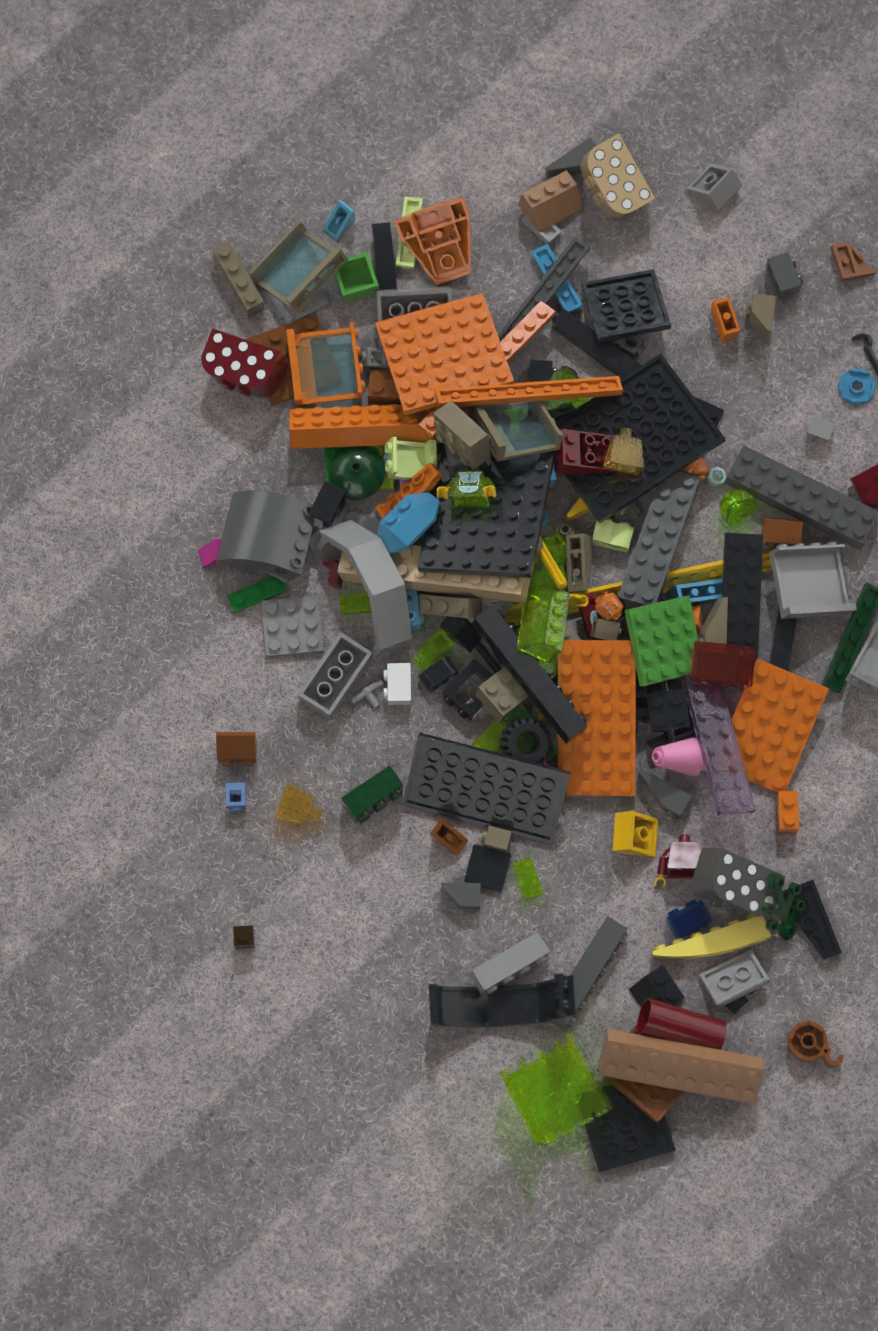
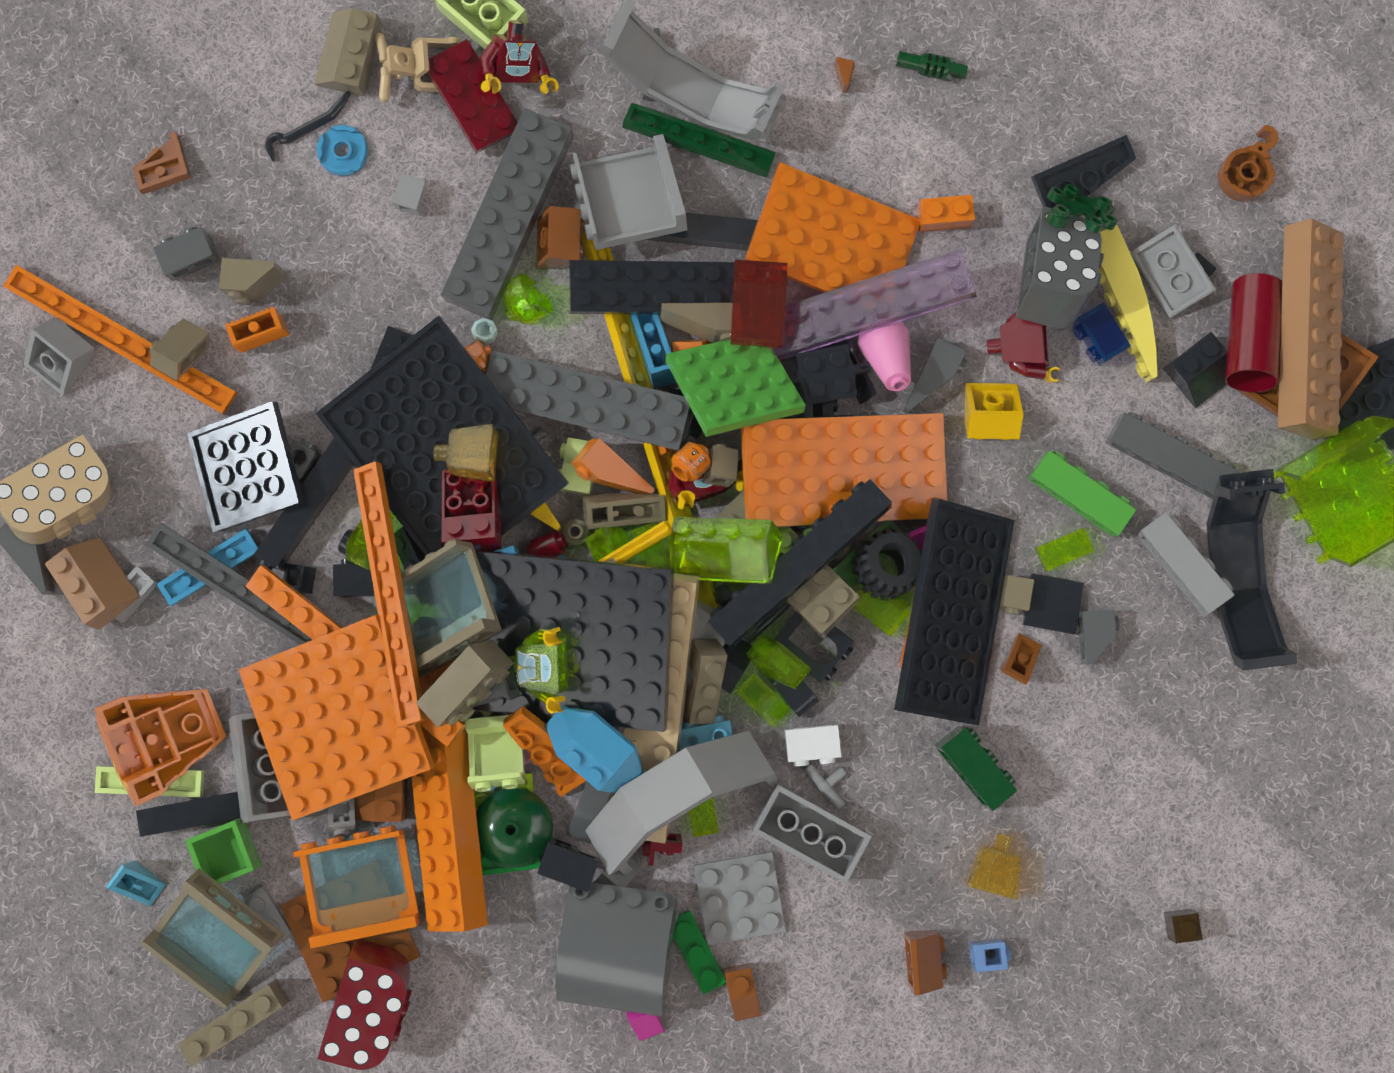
camera: 90 degrees left, 10 degrees up
(225, 621) = (742, 992): none -> dark orange slope
(460, 660) = (777, 662): none -> clear neon green slope
(544, 340) = (300, 577): none -> black slope
(555, 509) = (548, 545): none -> dark red brick
(568, 894) = (1081, 493): none -> bright green brick
(609, 549) = (603, 466): none -> orange slope
(714, 266) = (179, 349): none -> dark tan brick
(724, 228) = (114, 336): none -> orange plate

